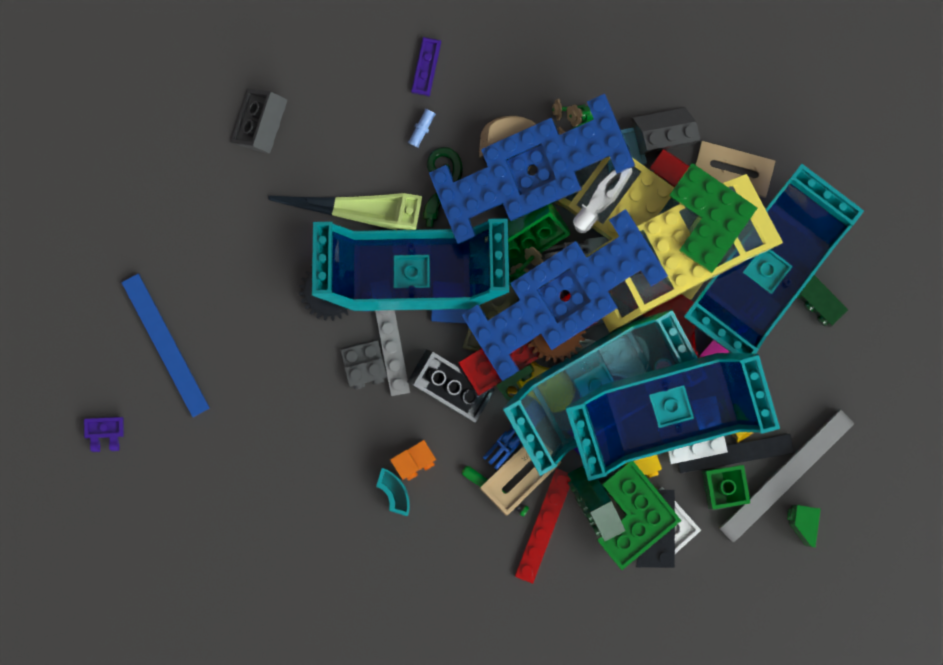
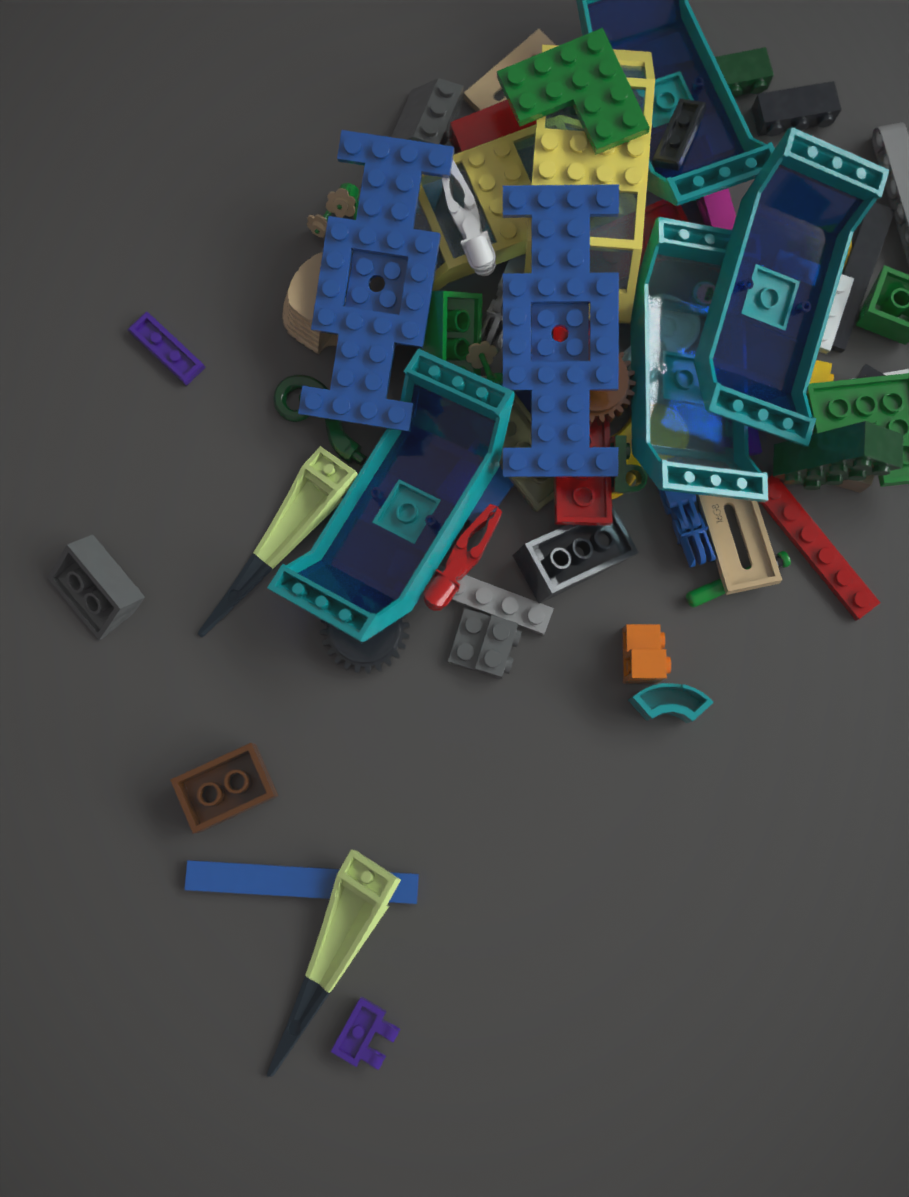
camera: 65 degrees left, 5 degrees down
(167, 383) = (352, 913): none -> yellowish green plate
(190, 268) = (224, 788): none -> reddish brown brick
(379, 320) = (444, 584): none -> red arm
(421, 128) = (237, 397): light blue pin -> none
(742, 291) = (679, 134): none -> black tile
(822, 353) = (796, 108): none -> black brick

